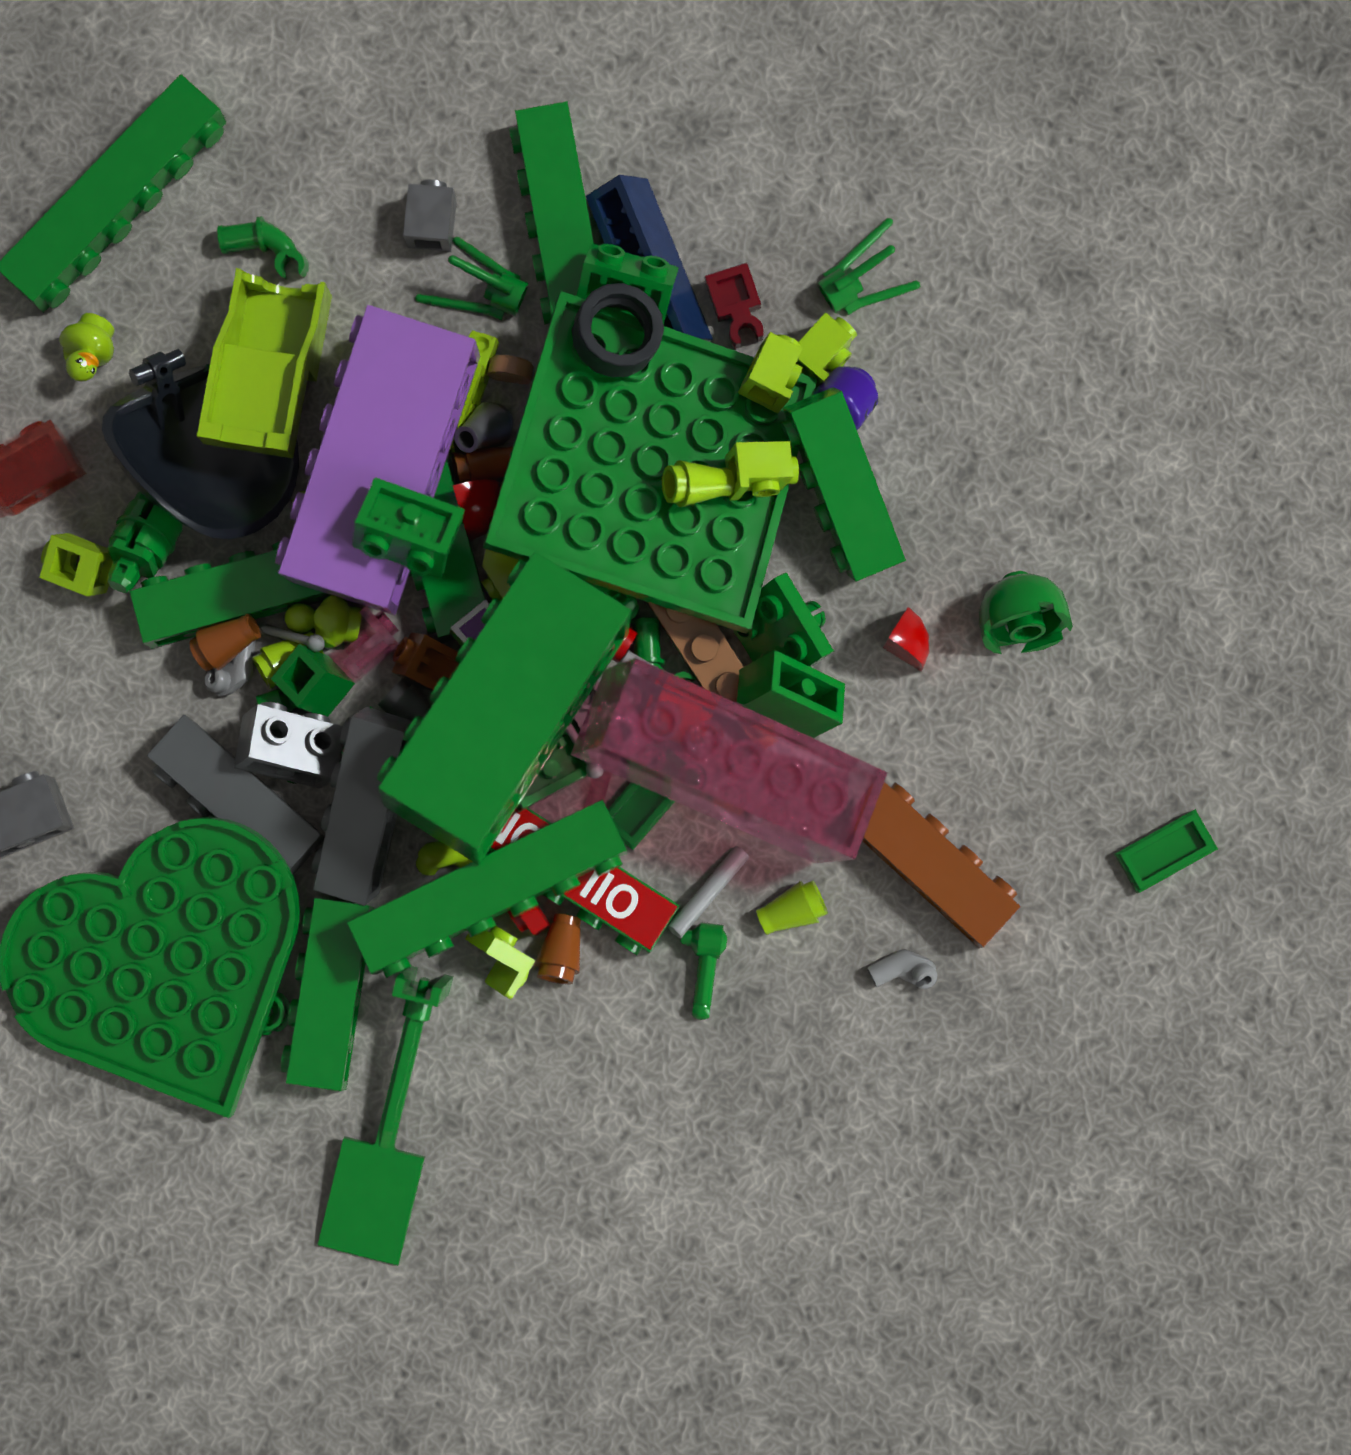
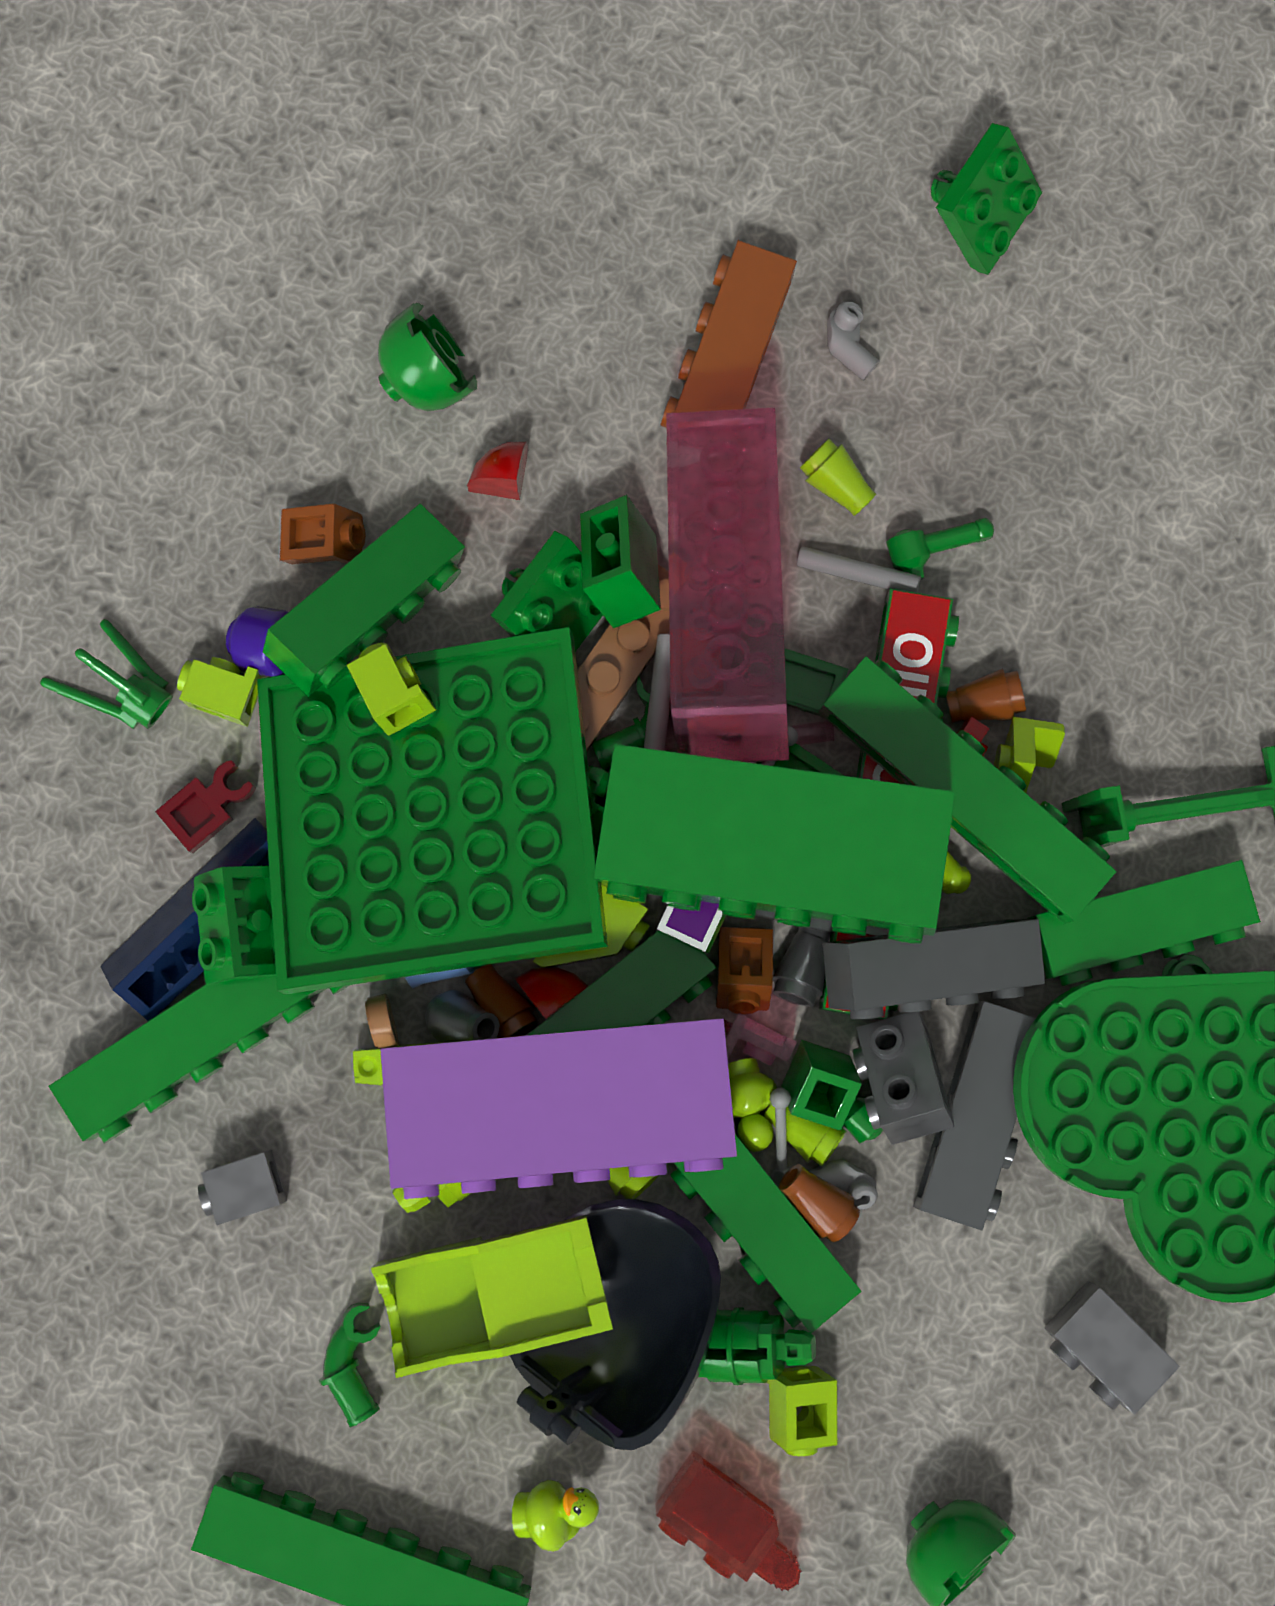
camera: 120 degrees left, 0 degrees up
(406, 528) = (628, 1029): green bracket -> none
(503, 288) = (293, 1069): green plant -> none
(640, 306) = (267, 879): black tyre -> none
(693, 483) = (437, 750): lime cone -> none
(773, 372) = (272, 722): lime brick -> none
(915, 478) = (321, 534): none -> dark orange bracket
(973, 1130) = (987, 198): none -> green plate
(1166, 851) = (611, 128): green tile -> none

